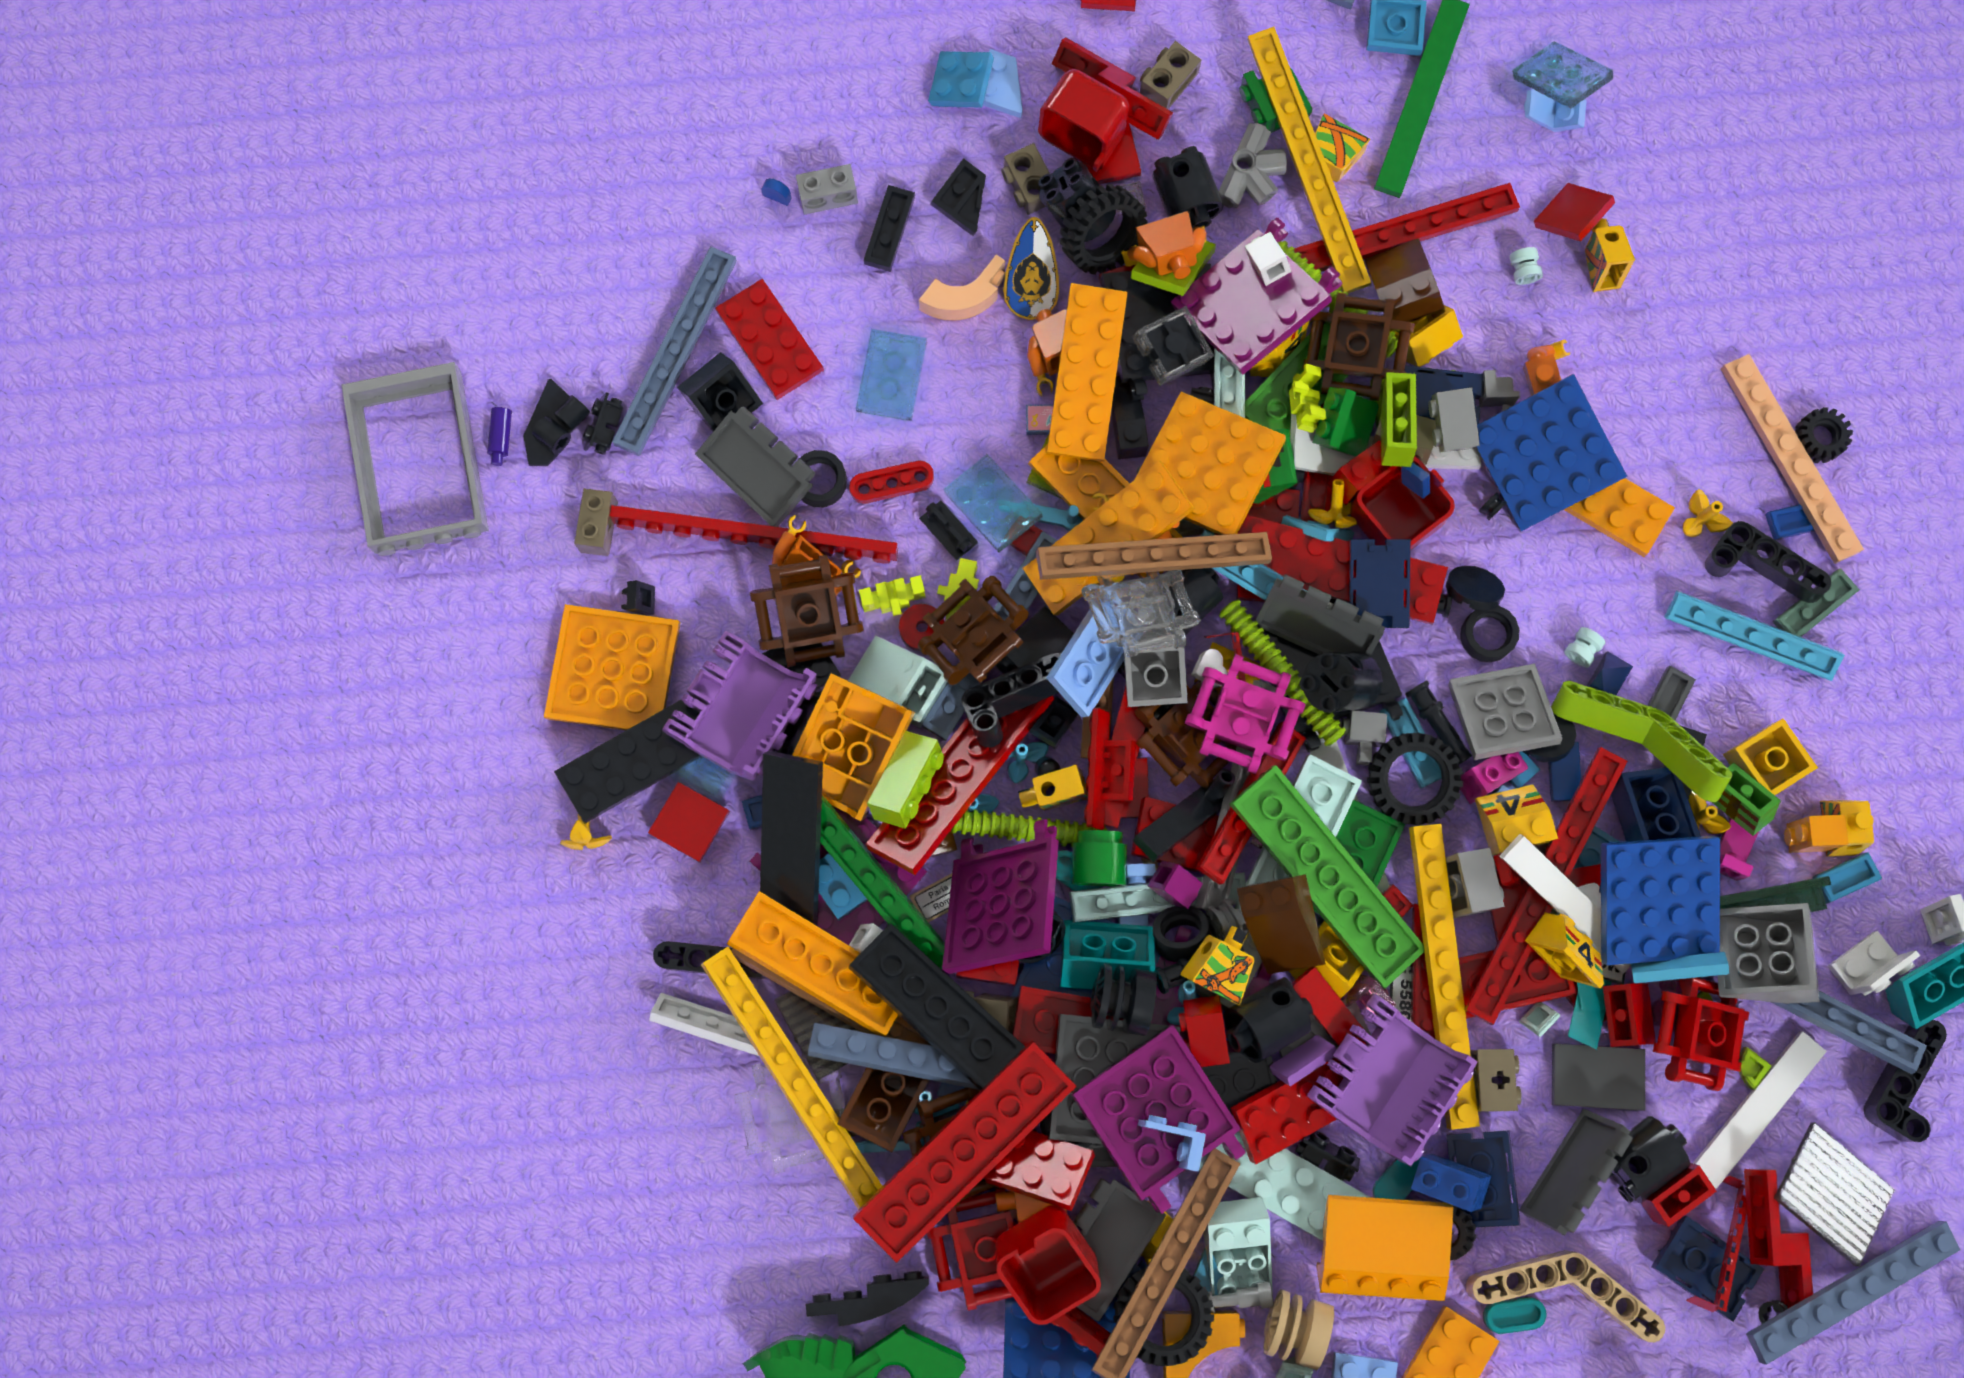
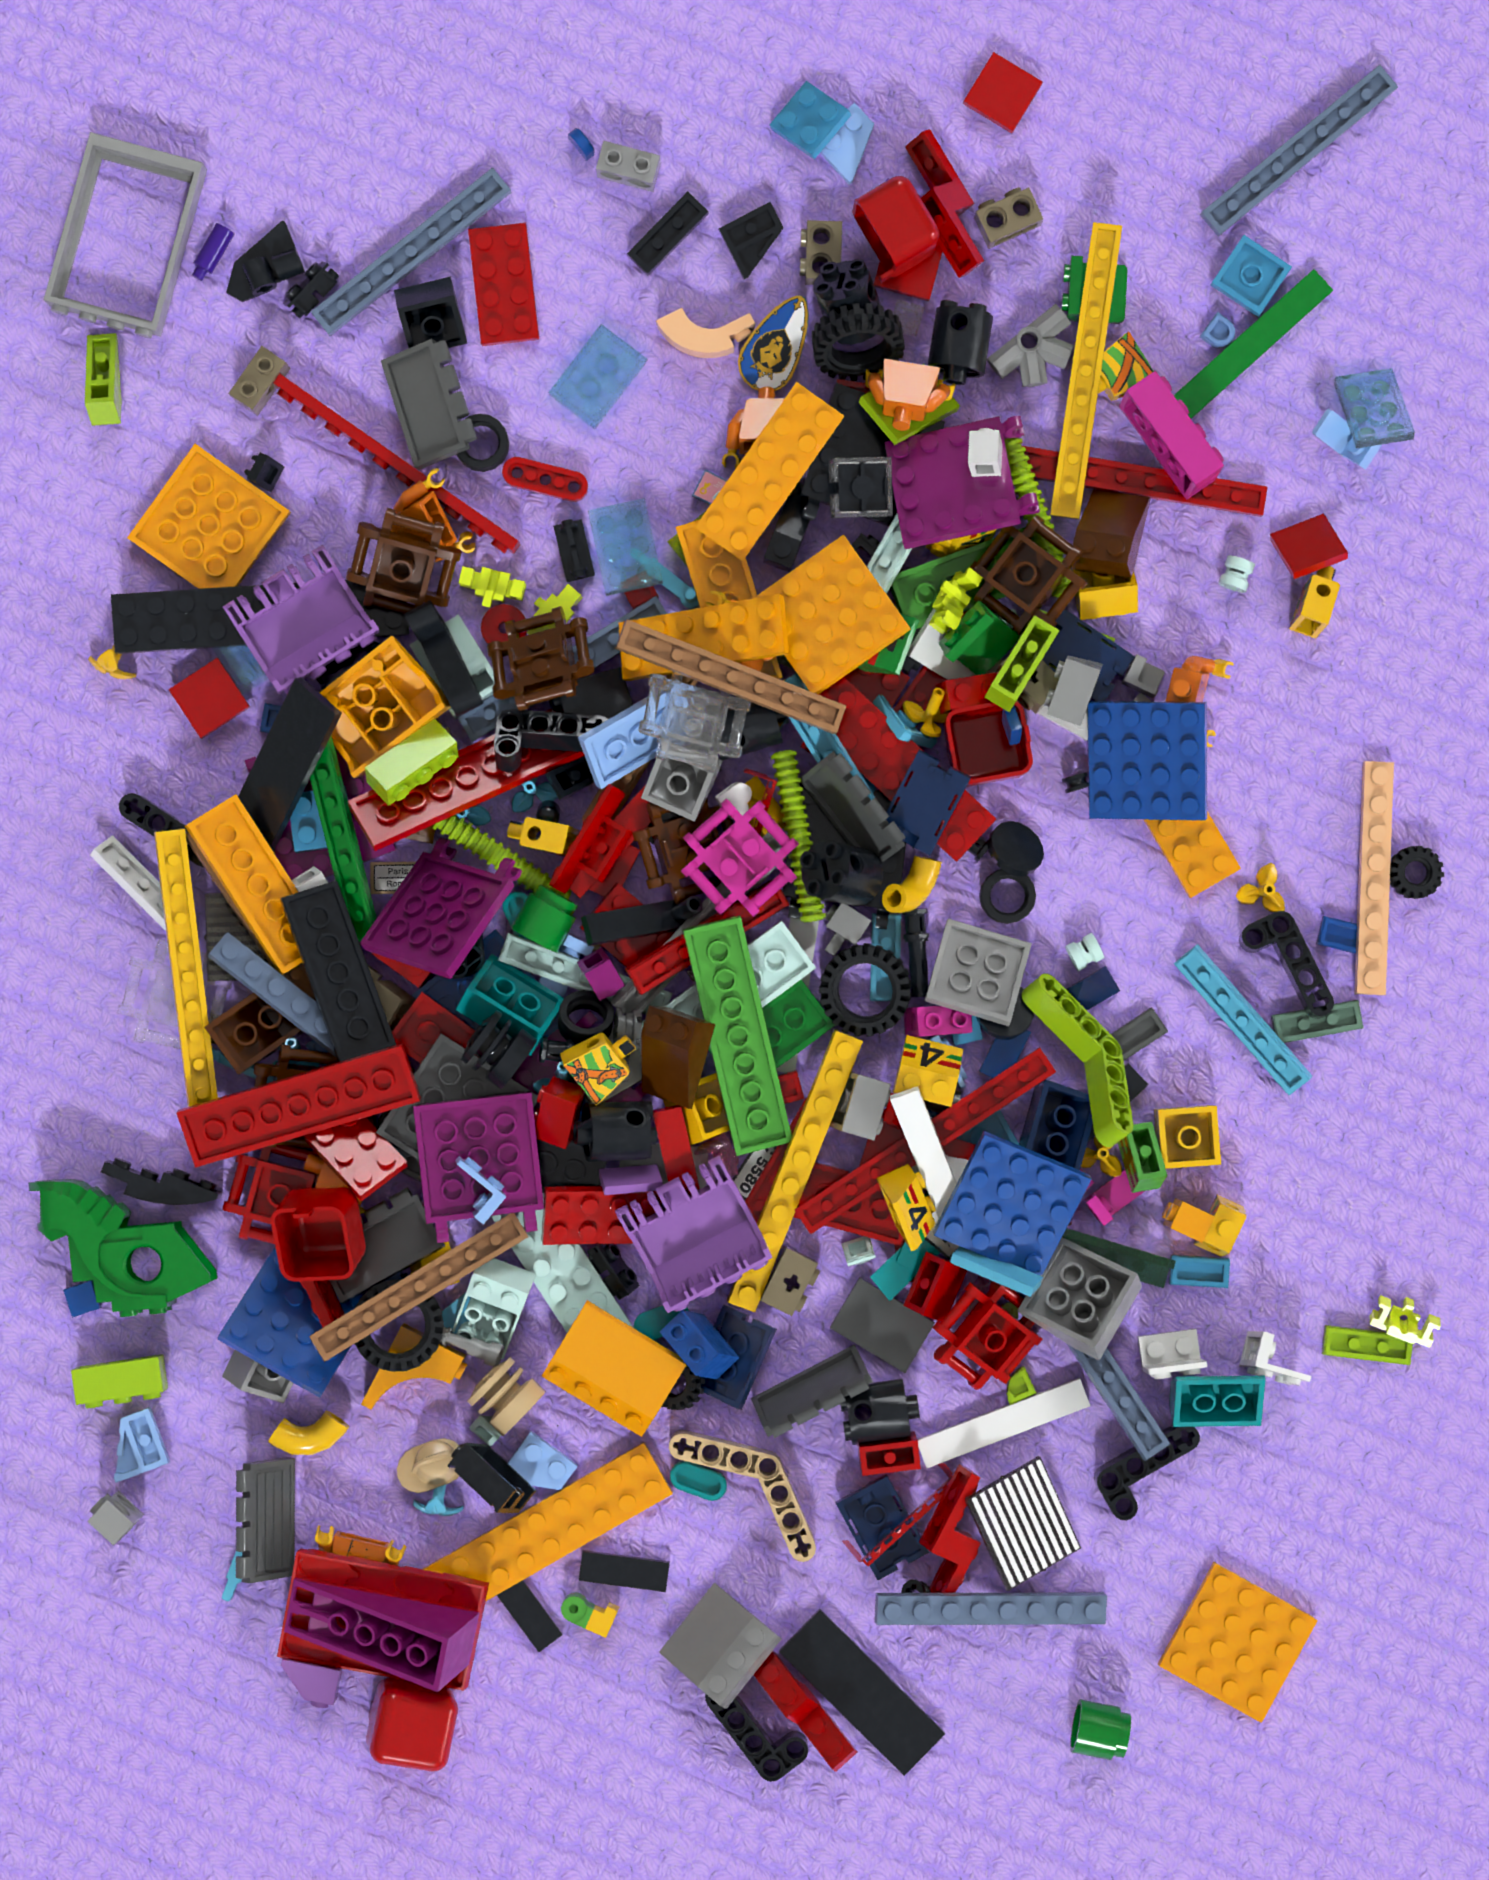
camera: 25 degrees right, 10 degrees up
(455, 591) = (103, 380): none -> lime slope
(886, 673) = (444, 658): none -> black beam
(1395, 83) = (1219, 332): none -> medium blue tile
(1406, 663) = (915, 887): none -> yellow cylinder
(1410, 174) = (1171, 434): none -> dark pink brick

